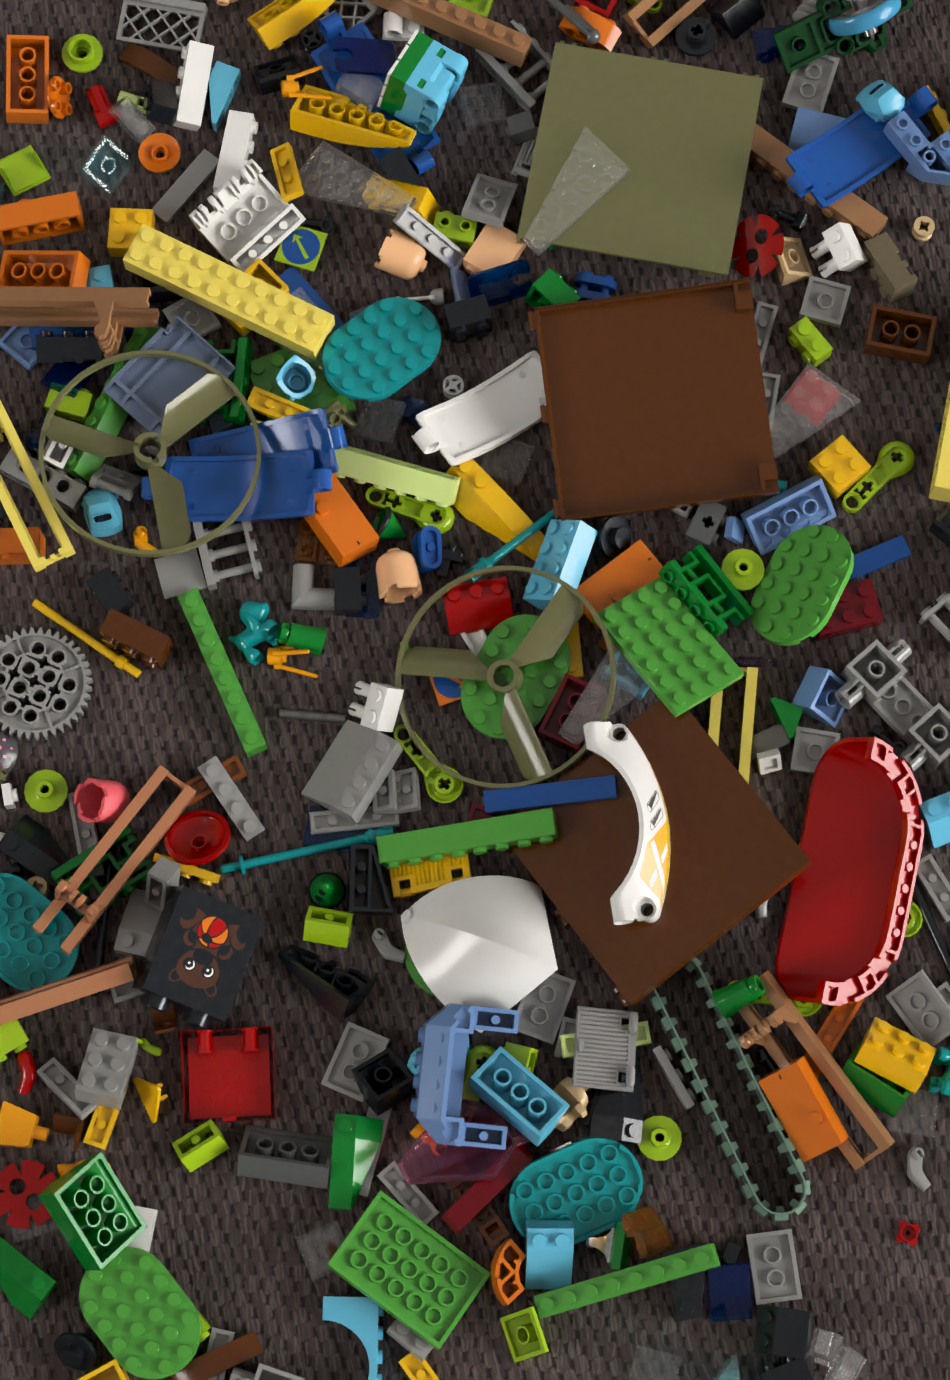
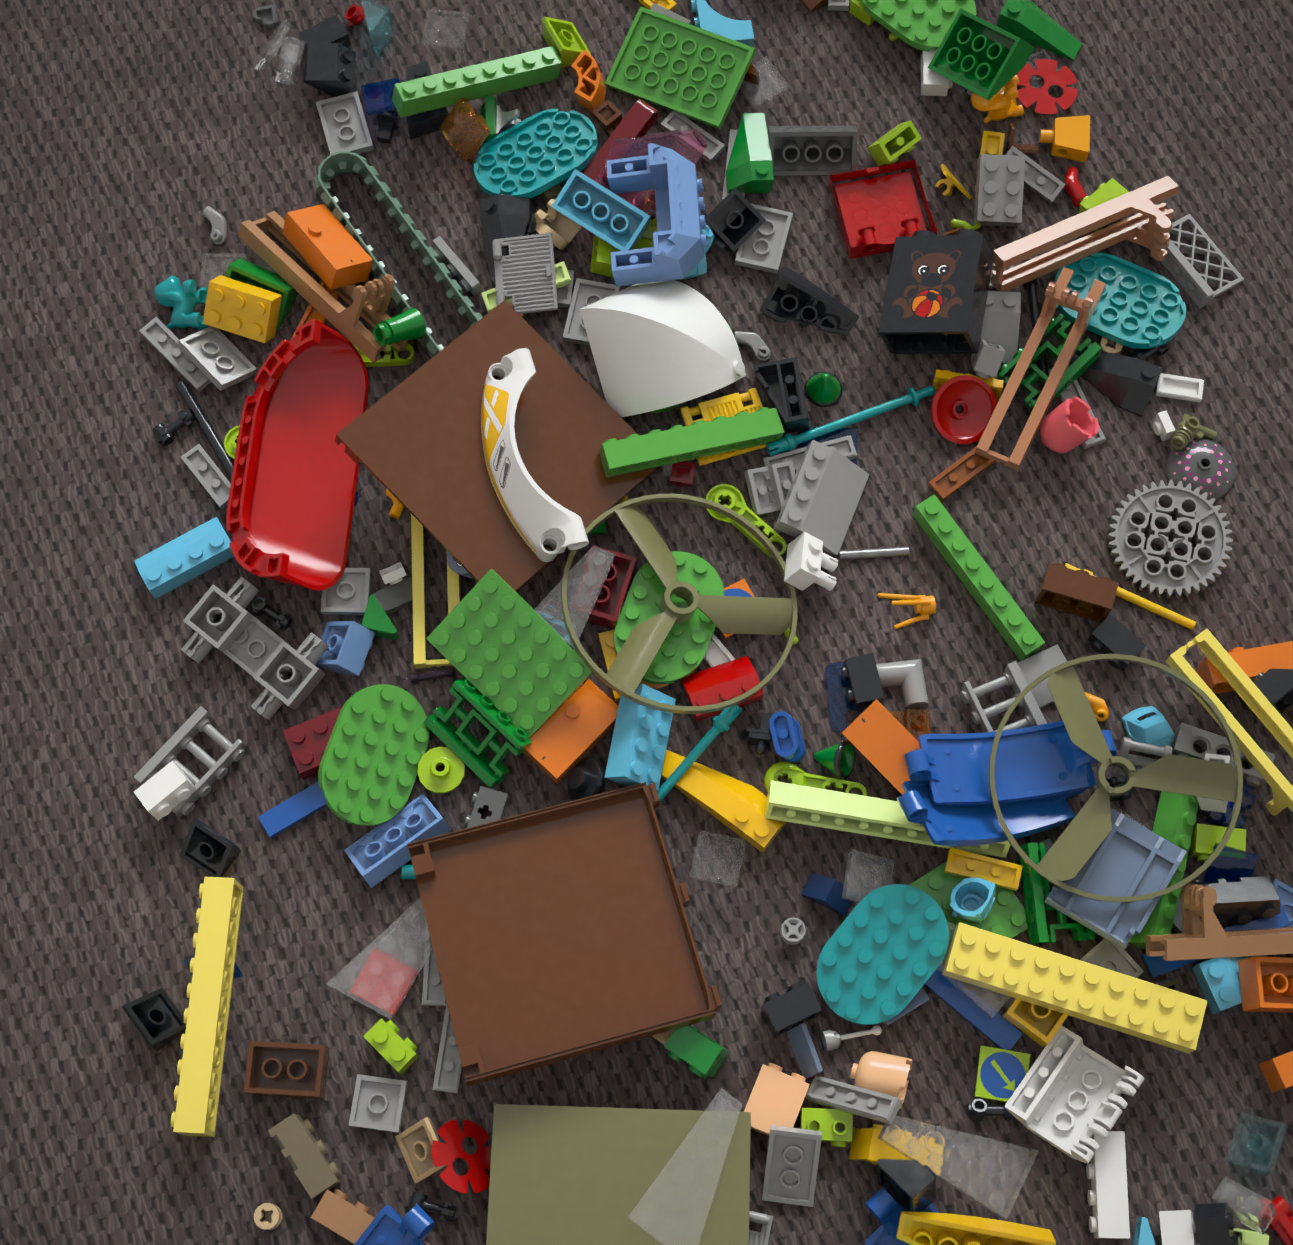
camera: 170 degrees right, 5 degrees down
(48, 801) = (1124, 444): lime piece -> none
(124, 226) = (1209, 1065): yellow brick -> none
(157, 144) = (1211, 1172): orange dish -> none
(185, 186) = (1156, 1136): light grey tile -> none
(231, 798) = (939, 455): light grey plate -> none
(257, 631) = (958, 639): teal animal -> none
(286, 172) = (1041, 1168): yellow plate -> none
(302, 637) = (902, 622): green plant -> none
(328, 926) = (815, 348): lime brick -> none
(337, 415) = (923, 870): olive piece -> none
(397, 576) = (814, 703): light nougat cylinder -> none
(485, 414) = (754, 896): white panel -> none
(498, 283) = (761, 1059): clear blue piece -> none
(548, 1254) = (553, 103): medium azure slope -> none
(550, 794) = (614, 490): blue tile -> none
(587, 281) = (638, 1083): blue brick -> none
(660, 1150) = (460, 221): lime piece -> none
(734, 530) = (455, 812): medium blue tile -> none
(839, 466) = (345, 900): yellow brick -> none
(844, 248) = (360, 1168): white brick -> none
(882, 472) = (296, 906): lime beam -> none
(912, 1228) = (220, 166): red plate -> none

